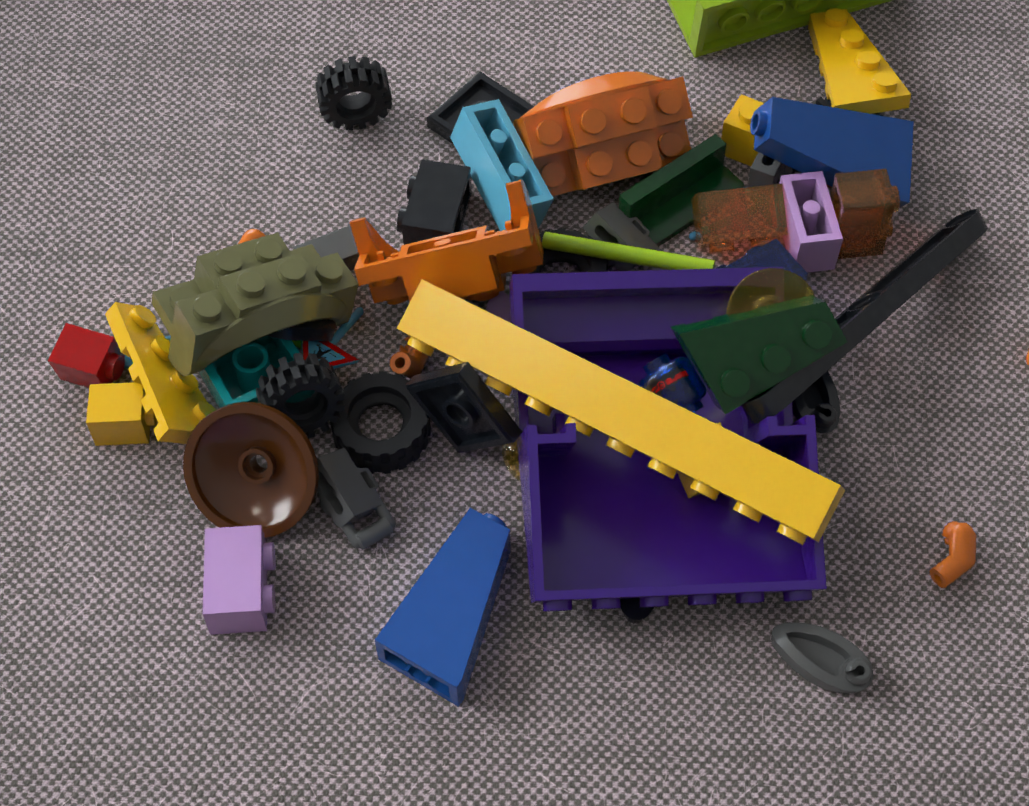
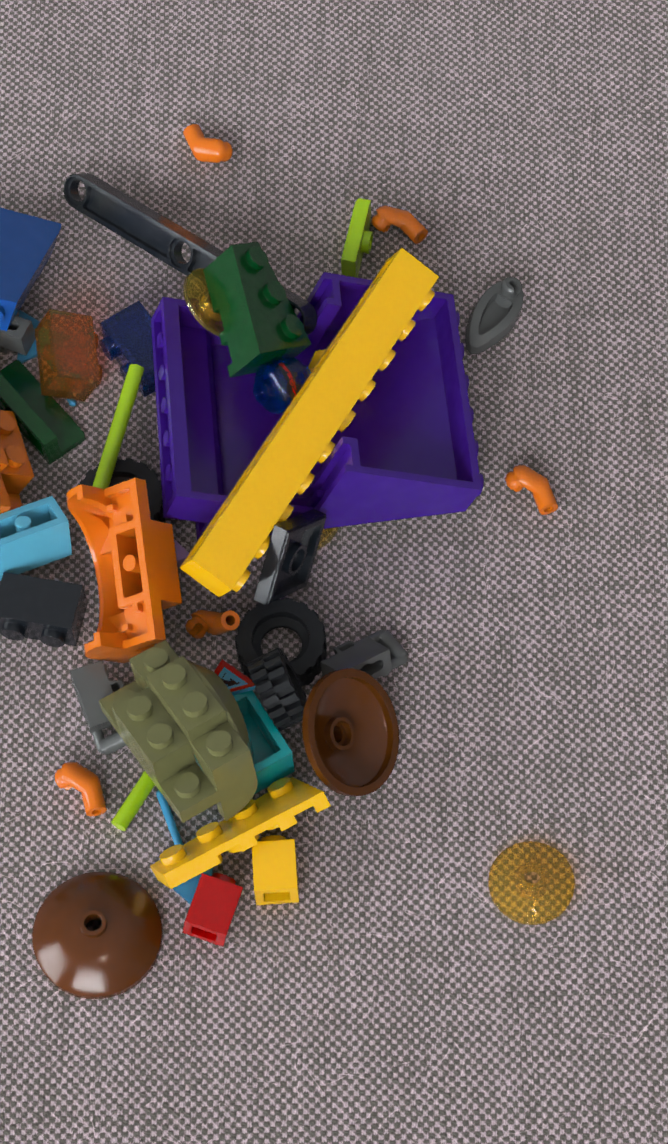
camera: 90 degrees left, 5 degrees up
(79, 686) = (528, 901): none -> clear yellow dish
(83, 289) = (101, 960): none -> reddish brown dish
(236, 579) = (448, 747): lavender brick -> none
(447, 611) = (466, 575): blue slope -> none
(578, 692) = (538, 485): none -> orange arm
(615, 227) = (84, 448): dark grey piece -> none
(811, 221) = (80, 293): lavender brick -> none
(864, 211) = (75, 259): clear orange brick -> none
(919, 501) = (358, 238): none -> lime plate

